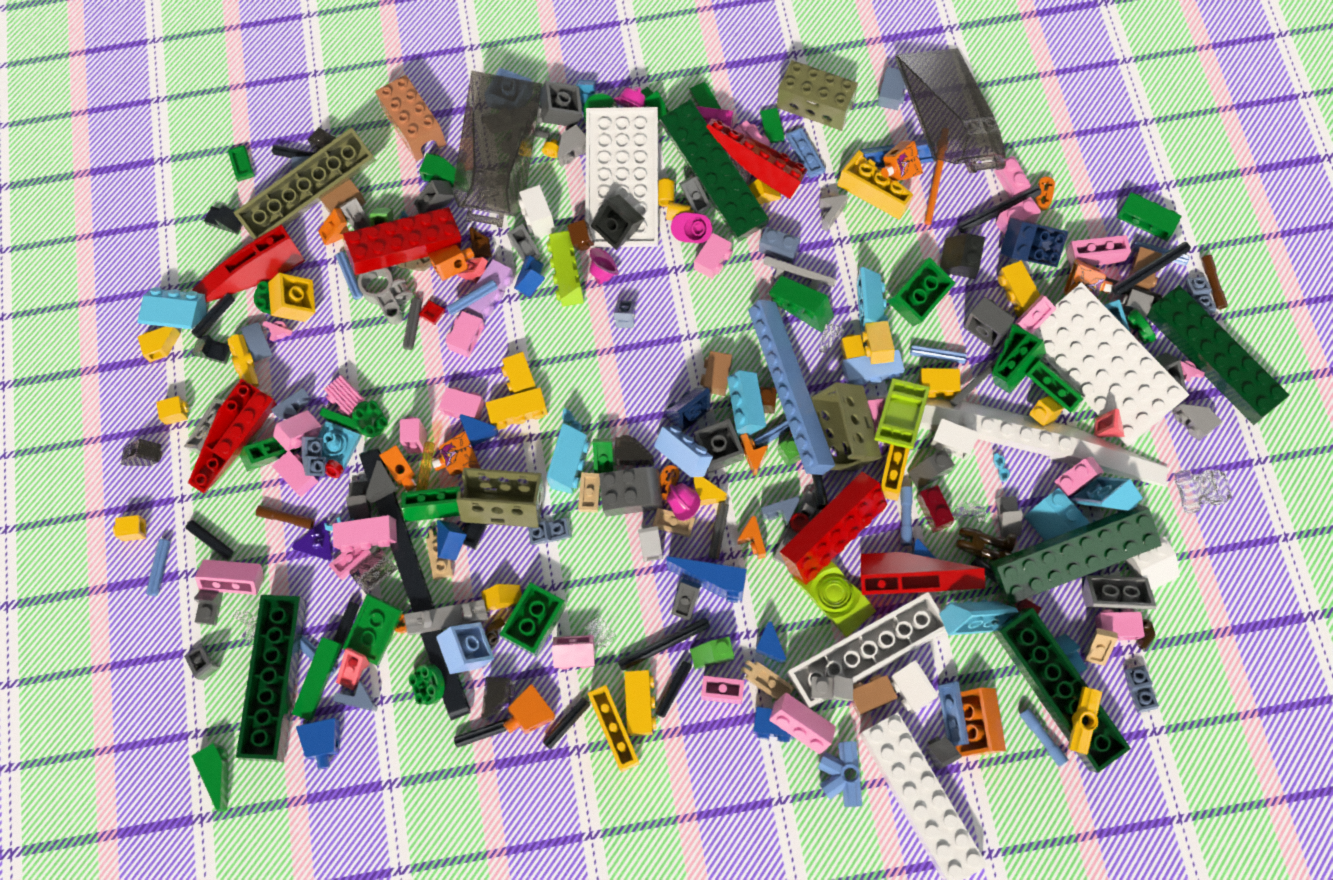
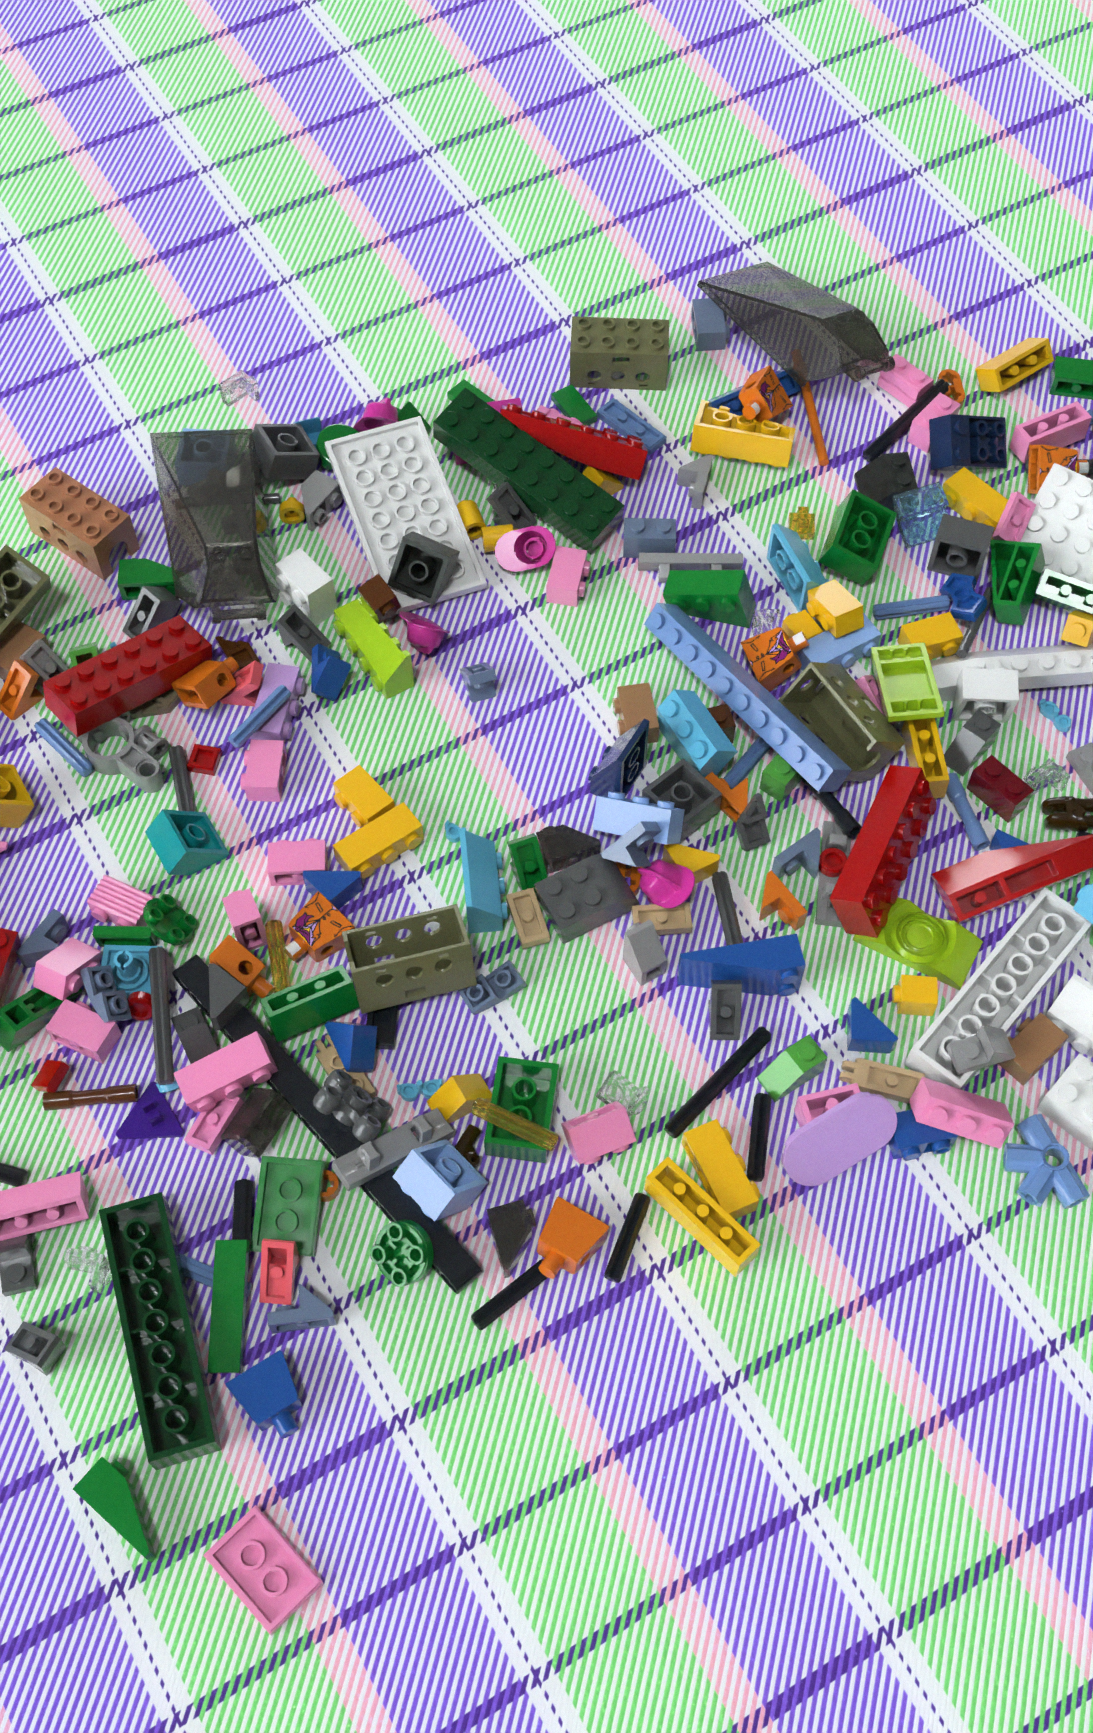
camera: 25 degrees left, 10 degrees down
(266, 496) = (50, 1076): none -> red tile
(281, 841) = (263, 1570): none -> bright pink tile
(341, 480) = (161, 1016): none -> dark grey axle
(399, 367) = (185, 841): none -> teal slope
(430, 581) = (351, 1105): none -> dark grey gear
(473, 582) = (410, 1092): none -> medium azure piece
(520, 630) = (515, 1124): none -> clear yellow axle
(550, 42) = (237, 387): none -> clear bracket
(667, 472) = (629, 846): none -> sand blue slope
(718, 711) = (839, 1138): none -> lavender tile
(758, 479) = (752, 825): none -> dark grey slope
(813, 632) = (916, 995): none -> yellow brick
(824, 362) = (774, 655): none -> orange torso
(890, 267) = (802, 523): none -> clear yellow tile
(974, 285) = (920, 513): none -> clear light blue slope
(976, 365) = (966, 602): none -> blue tile
(1098, 189) = (1014, 364): none -> yellow brick

